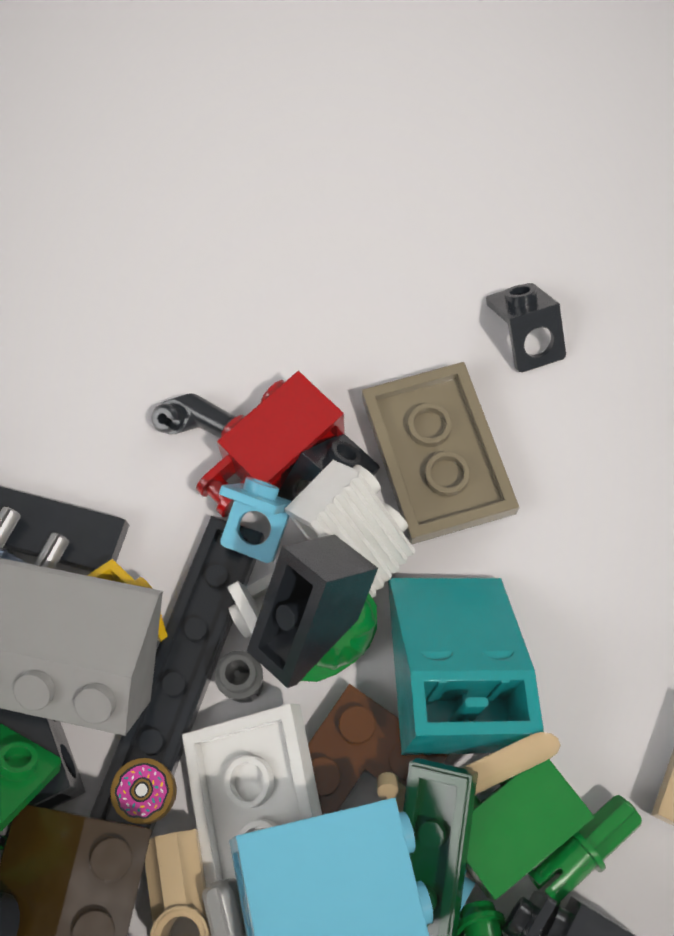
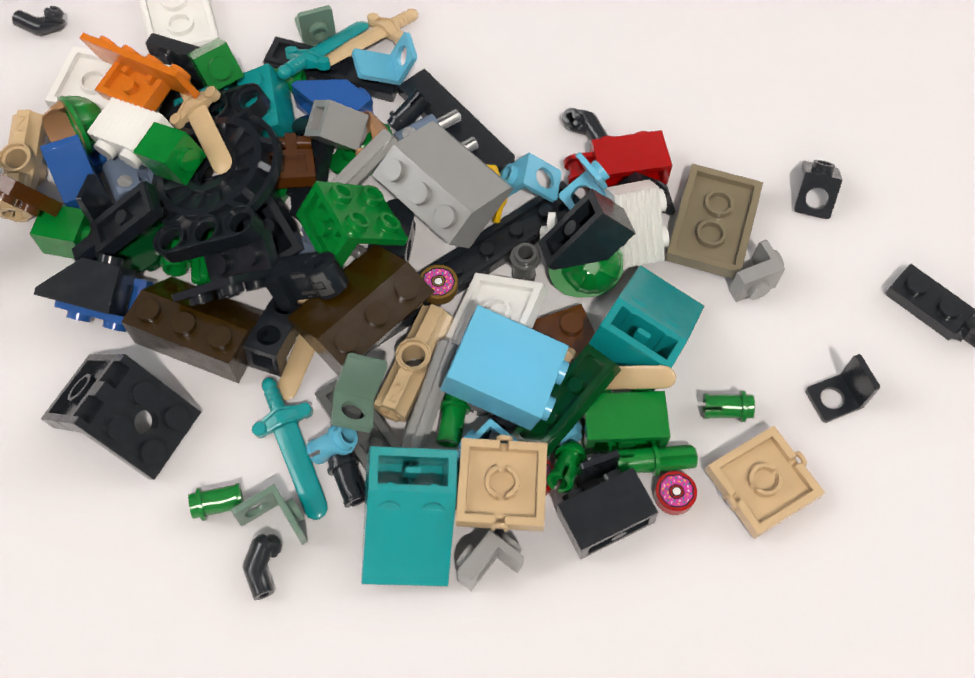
camera: 30 degrees right, 5 degrees down
(154, 550) = (523, 175): none -> medium azure bracket
(550, 477) = (762, 277): none -> light grey bracket
(623, 704) = (729, 406): none -> green pin
(638, 876) = (675, 493): none -> tile

